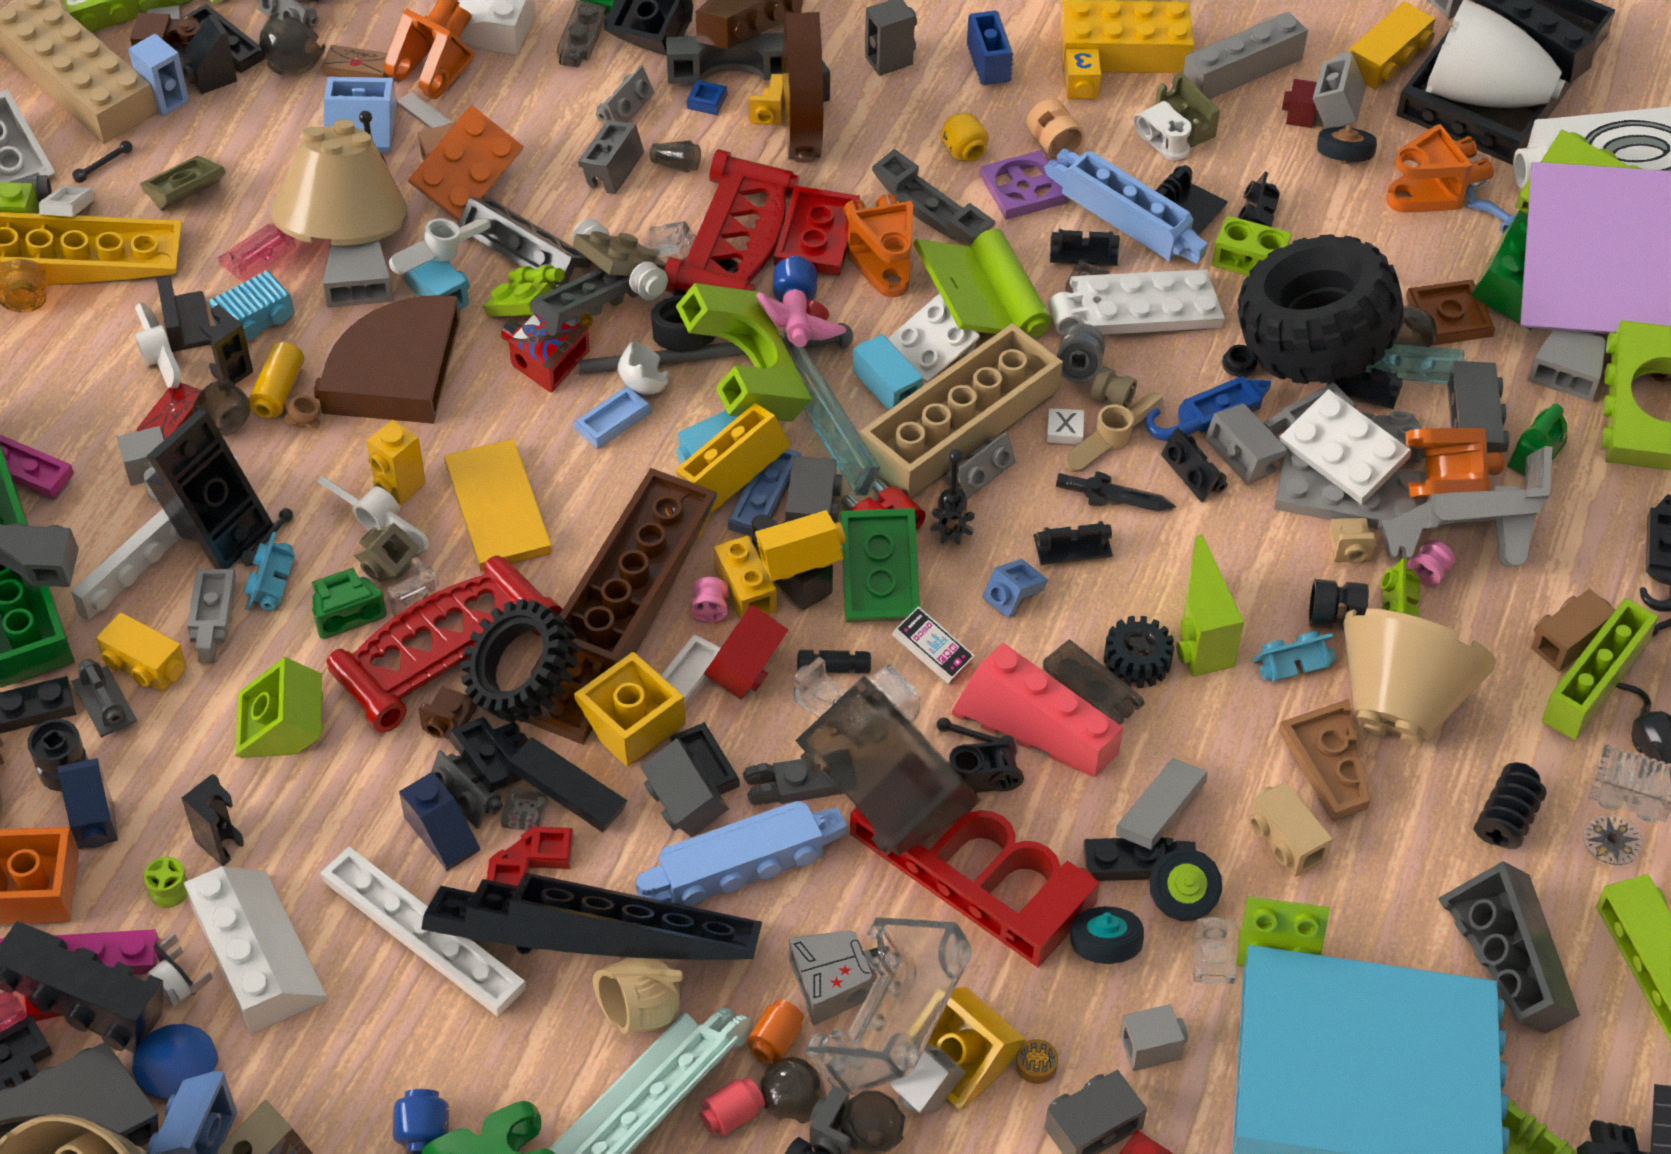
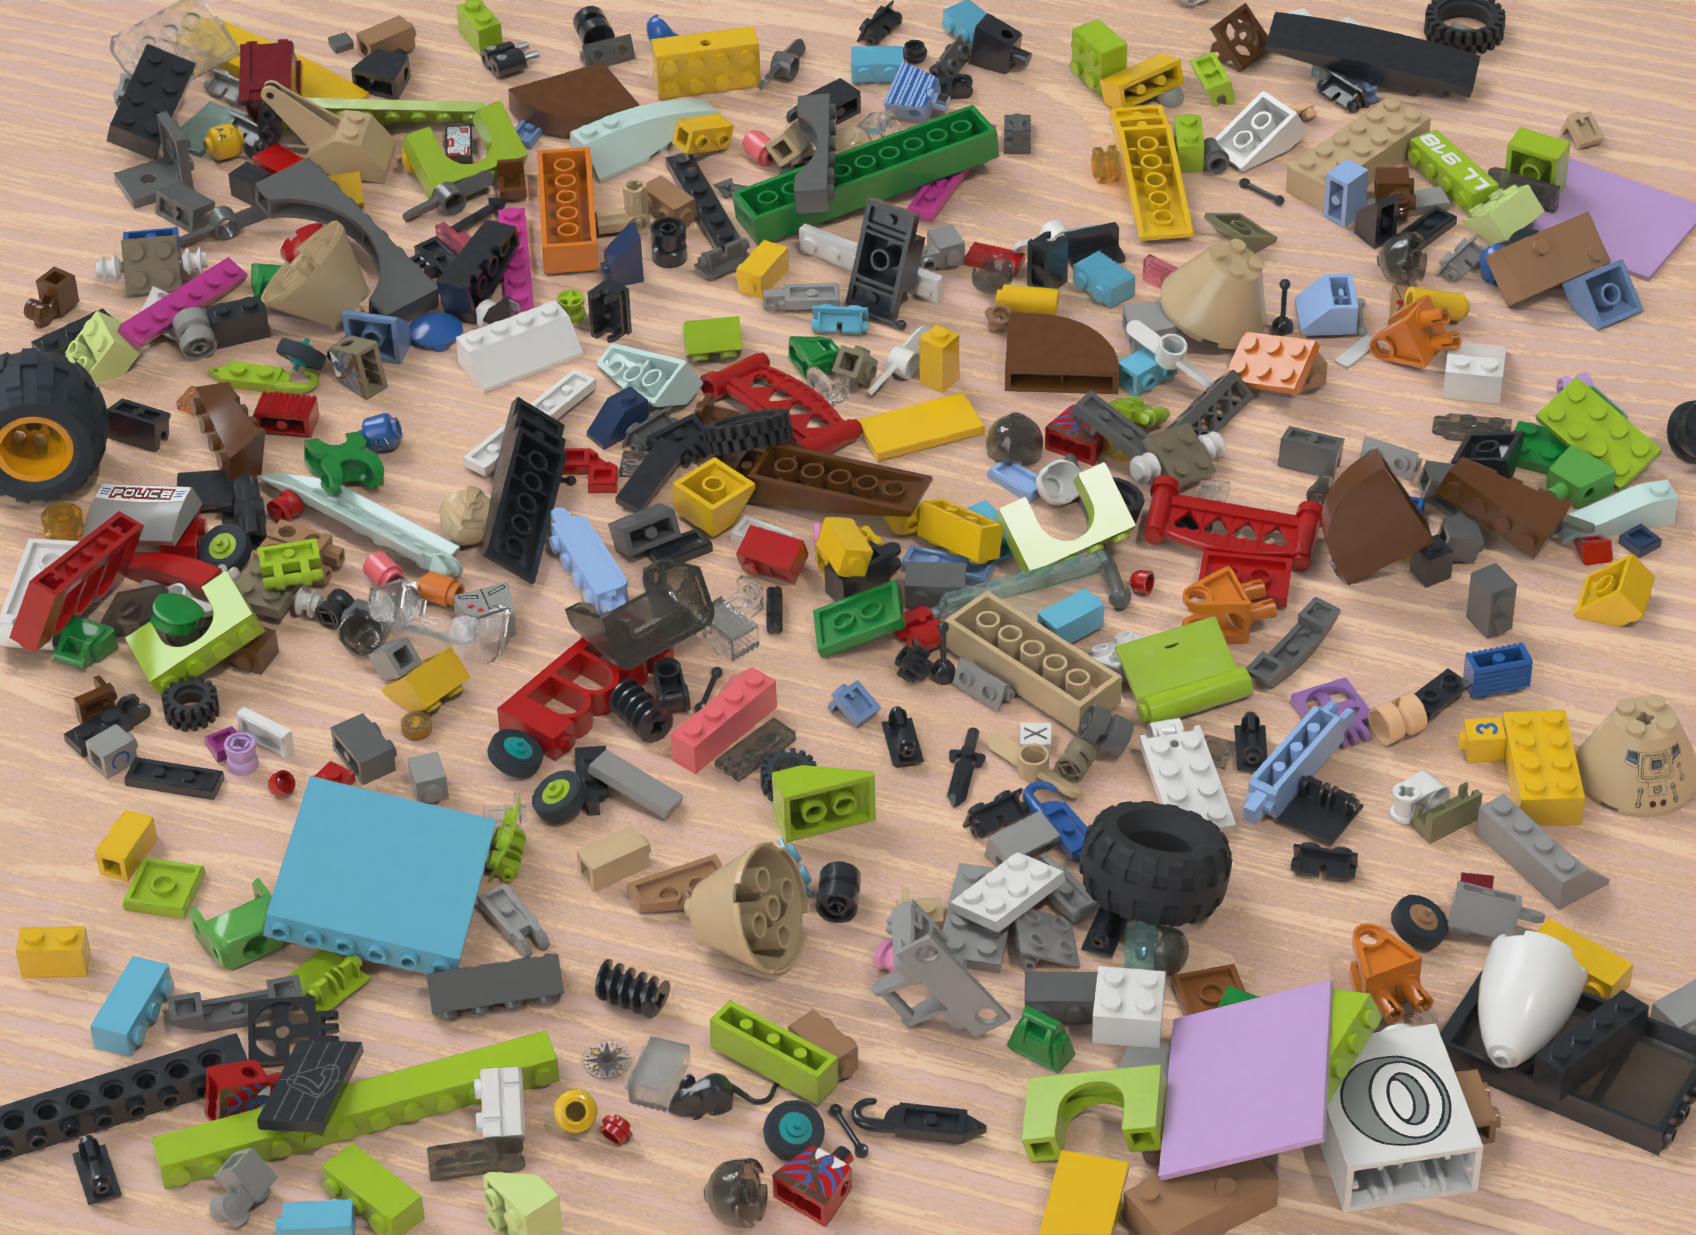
camera: 90 degrees right, 10 degrees down
(66, 201) = (1200, 172): white tile -> none
(351, 788) = (655, 376): none -> light aqua wedge
(376, 29) = (1455, 302): none -> yellow brick
(555, 407) = (1015, 439): none -> clear smoke cylinder
(792, 274) = (1178, 567): blue head -> none
(797, 323) = (1113, 551): bright pink plant -> none
(933, 645) = (789, 657): tile -> none
(964, 137) = (1379, 663): yellow head -> none
(1014, 92) = (1441, 691): none -> black hinge
(1031, 794) = (640, 711): none -> black piece
(1245, 243) = (1265, 853): lime brick -> none
(1396, 935) = (513, 918): none -> light grey hinge
(1400, 587) = (840, 935): lime hinge -> none
(1454, 460) = (1001, 939): orange piece -> none
(1527, 348) = (1128, 1007): none -> white brick

